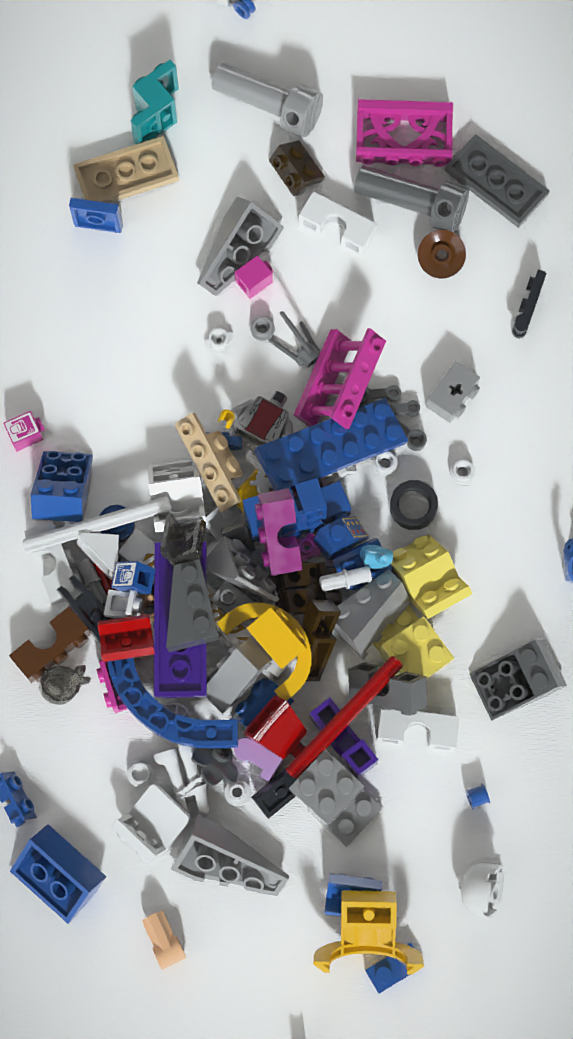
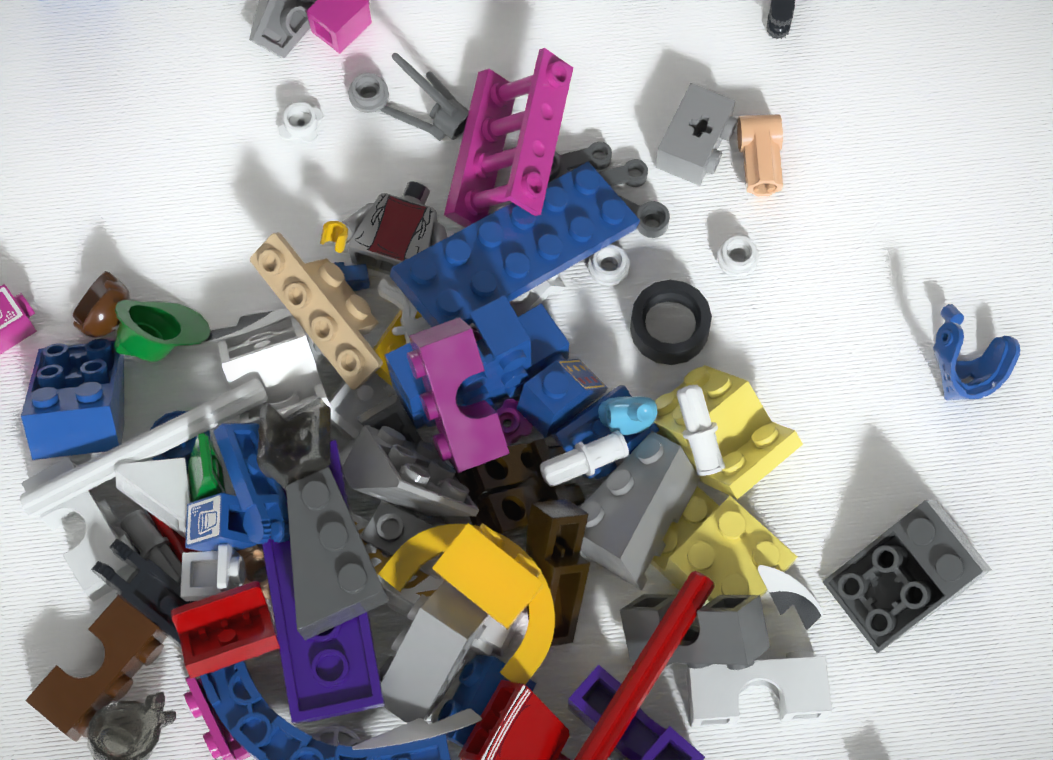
camera: 10 degrees left, 5 degrees down
(84, 434) = (97, 307): none -> reddish brown hair
(114, 452) = (156, 328): none -> green piece
(128, 546) = (205, 470): none -> green slope
(157, 567) = (258, 495): none -> blue hinge
(166, 459) = (247, 324): none -> sticker
(224, 714) = (420, 729): none -> white sticker
(413, 576) = (700, 430): none -> white axle
(445, 676) = (787, 592): none -> sticker
(491, 404) = (761, 142): none -> light nougat piece

